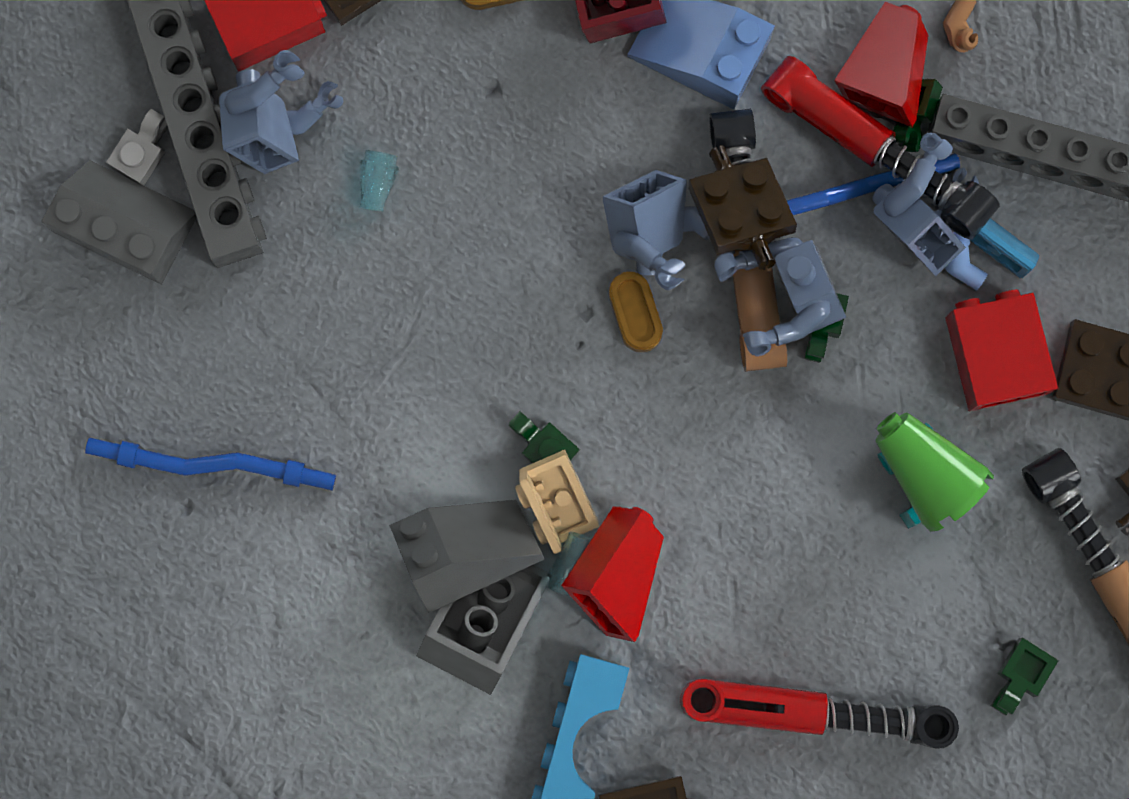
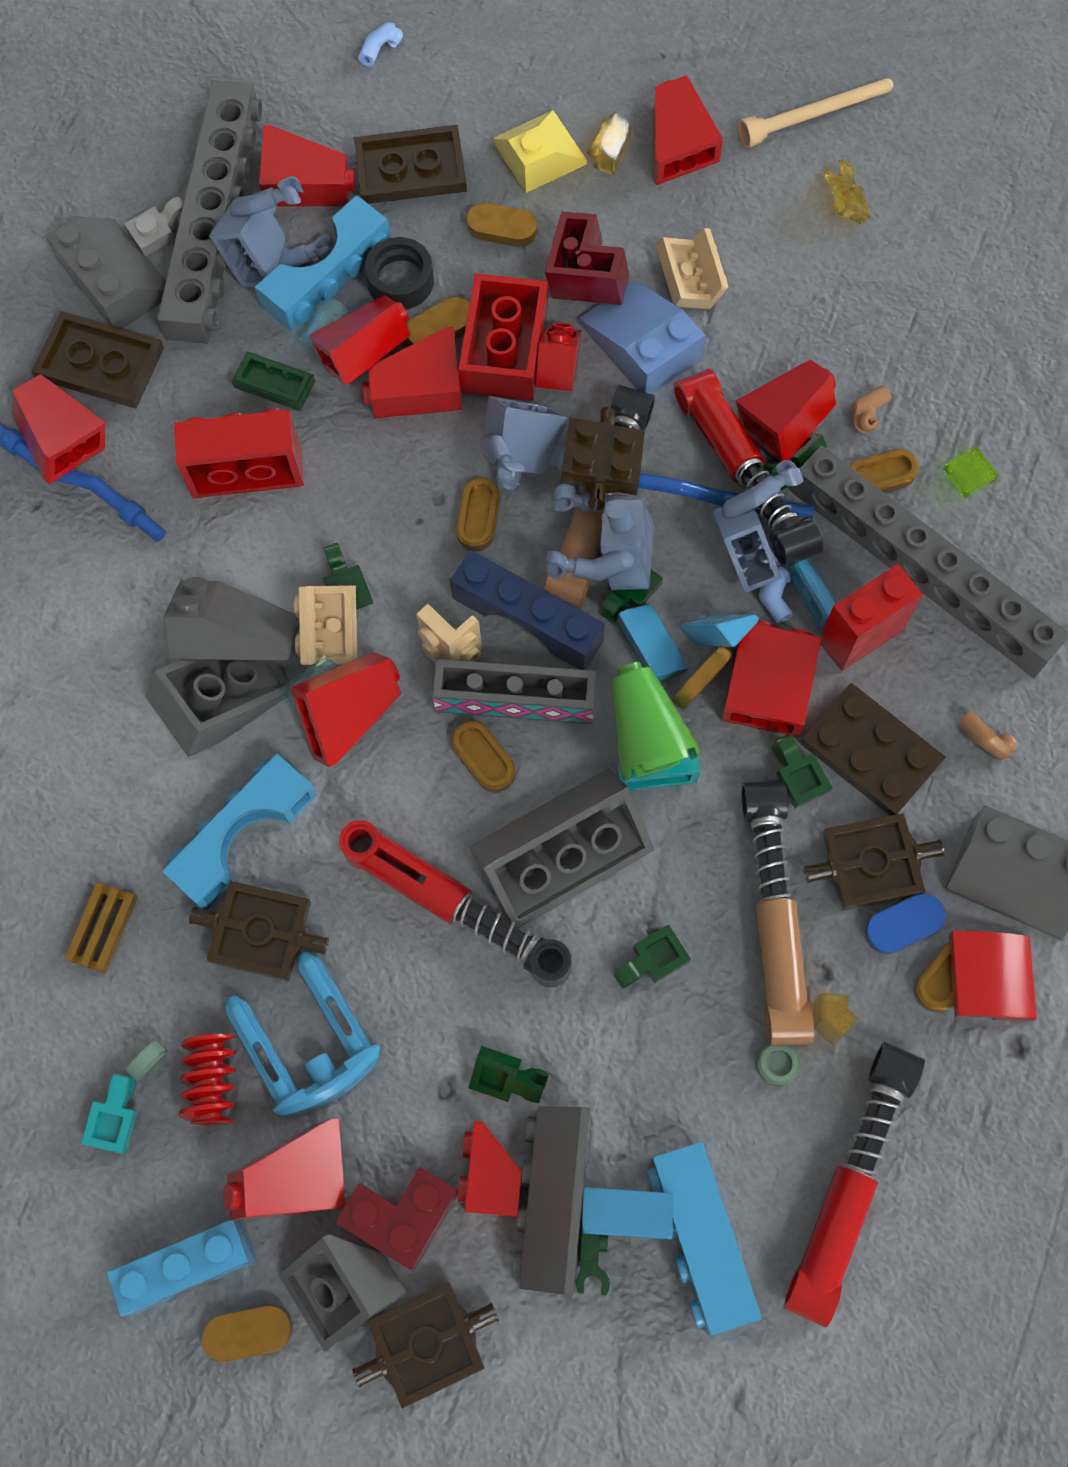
camera: 30 degrees right, 10 degrees down
(165, 326) = (98, 359): none -> dark brown plate
(167, 423) = (56, 427): none -> red slope
(328, 161) = (293, 292): none -> dark azure arch
(358, 266) = (273, 381): none -> dark green plate
(375, 364) = (239, 453): none -> red brick
(418, 59) = (400, 250): none -> black tyre
(428, 184) = (361, 338): none -> red slope
(492, 125) = (448, 313): none -> pearl gold tile
(505, 197) = (416, 379): none -> red slope
(571, 114) = (503, 337): none -> red brick
(633, 109) = (558, 357): none -> red slope
(674, 466) = (445, 642): none -> tan bracket
(756, 392) = (496, 591): none -> dark blue arch
(767, 555) = (483, 756): none -> pearl gold tile
(772, 482) = (514, 691): none -> dark grey brick
(869, 367) = (651, 642): none -> dark azure slope
(888, 610) = (562, 847): none -> dark grey slope
(934, 327) = (719, 629): none -> dark azure slope
(936, 380) = (702, 677): none -> pearl gold tile
(1005, 82) = (889, 469): none -> pearl gold tile
(1072, 252) = (870, 617): none -> red brick
(1072, 433) = (802, 776): none -> dark green plate
(1086, 46) = (971, 472): none -> clear neon green tile

